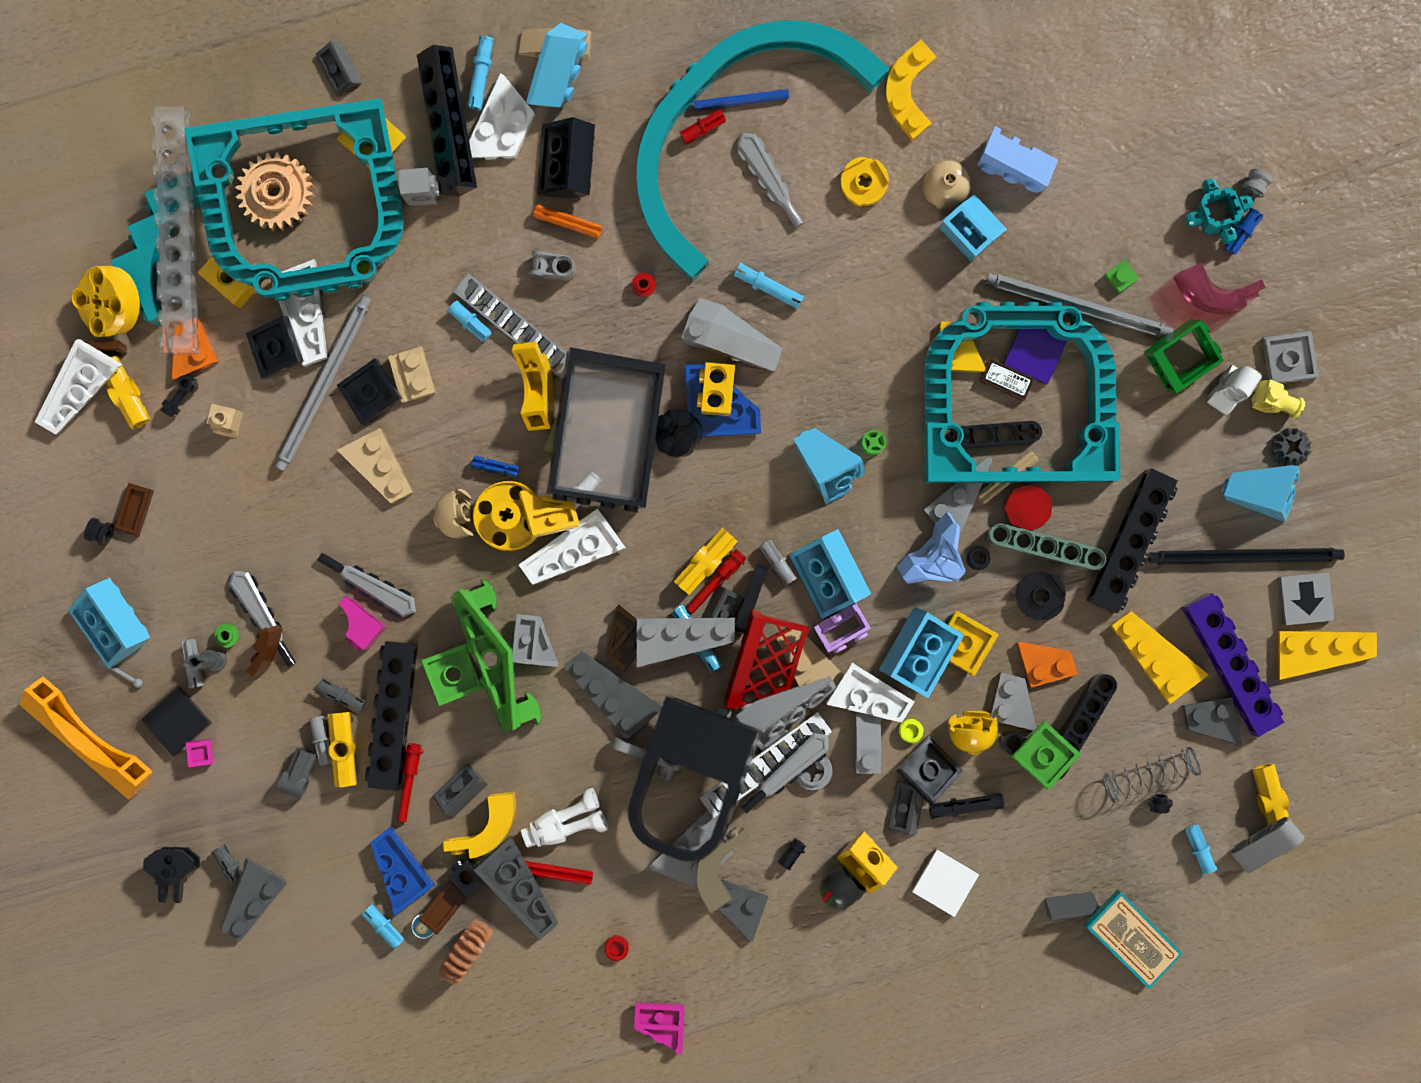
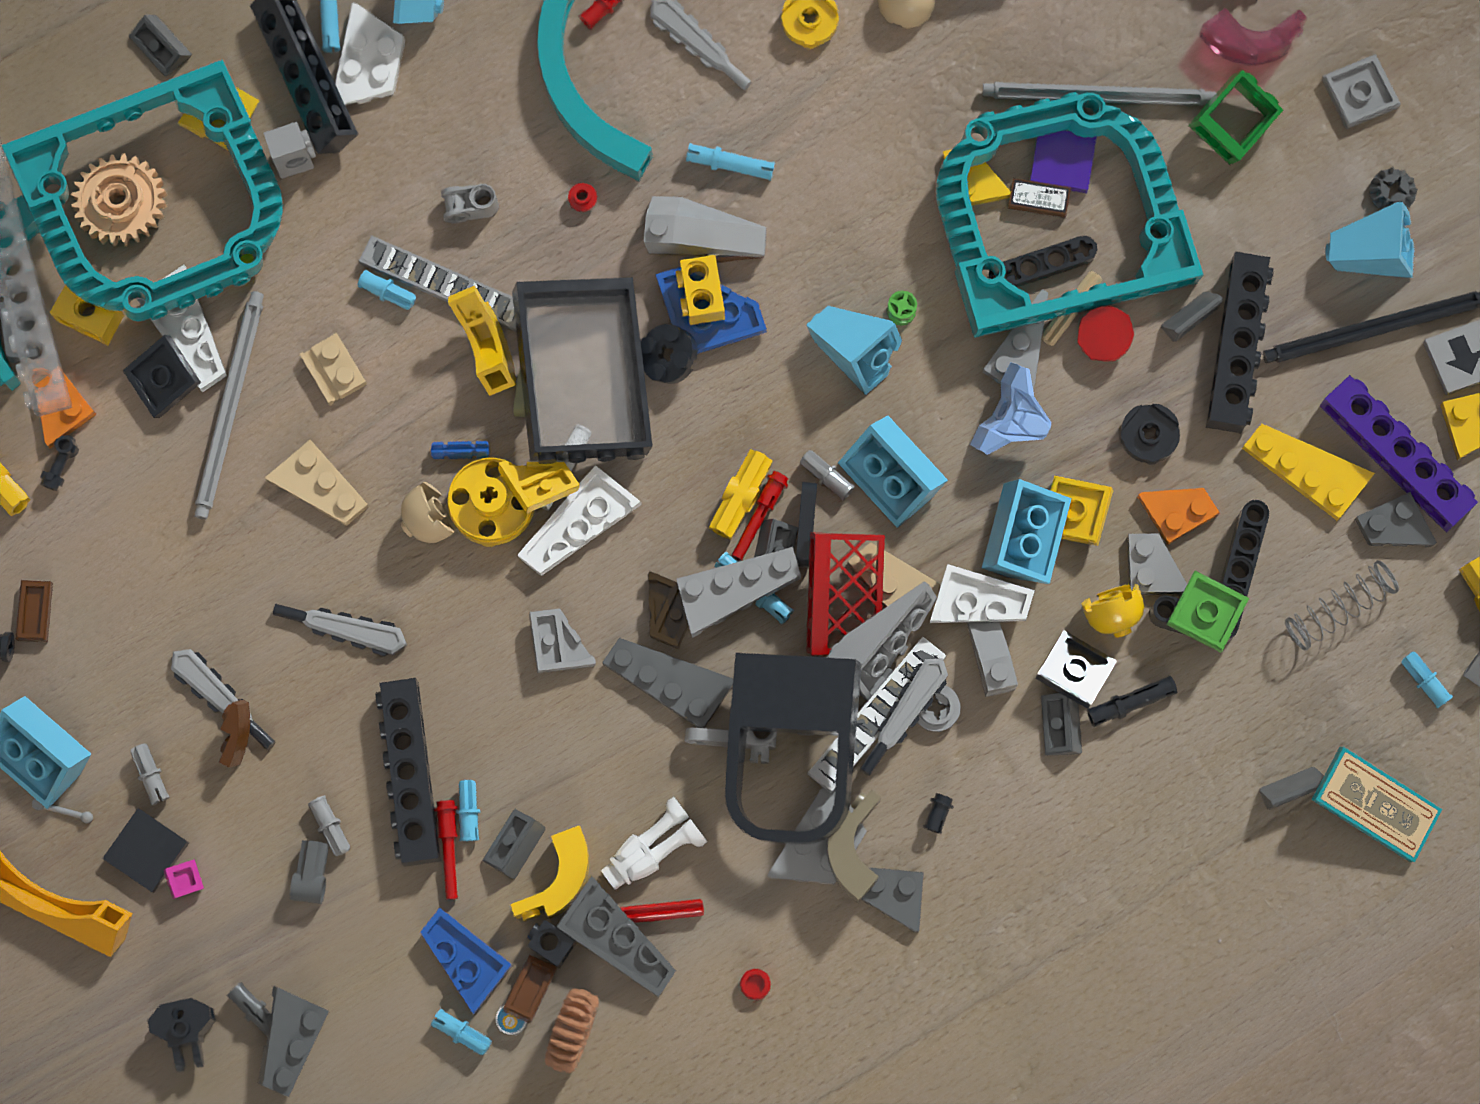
camera: 15 degrees left, 10 degrees down
(208, 661) = (170, 759): dark grey pin -> none
(224, 420) = (121, 476): tan window -> none
(233, 638) = (189, 737): bright green plate -> none
(341, 696) = (340, 766): dark grey pin -> none
(343, 766) = (364, 847): yellow piece -> none
(363, 626) = (348, 676): dark pink arch -> none
(369, 391) = (287, 400): black tile -> none
(430, 757) = (468, 811): none -> medium azure axle
(496, 679) = (529, 695): bright green piece -> none
(566, 158) = (454, 78): black slope -> none
(568, 221) = (474, 148): orange axle -> none
(661, 1022) = (835, 1060): dark pink wing -> none
(838, 618) = (917, 521): lavender window -> none
(838, 890) = (1008, 835): pearl dark grey helmet -> none
(867, 862) = (1031, 796): yellow brick -> none
(910, 730) = (1040, 631): neon yellow tile -> none
(945, 882) = (1133, 800): white tile -> none
(972, 228) = (949, 37): medium azure slope -> none
(984, 554) = (1063, 400): black plate -> none
(1057, 545) = (1150, 366): sand green beam -> none
(1101, 507) = (1191, 315): none -> dark grey slope
(1121, 276) = (1138, 49): bright green plate -> none
(1160, 803) = (1362, 638): black plate -> none
(1233, 387) = (1303, 137): white piece -> none
(1272, 398) = (1353, 139): light yellow connector -> none

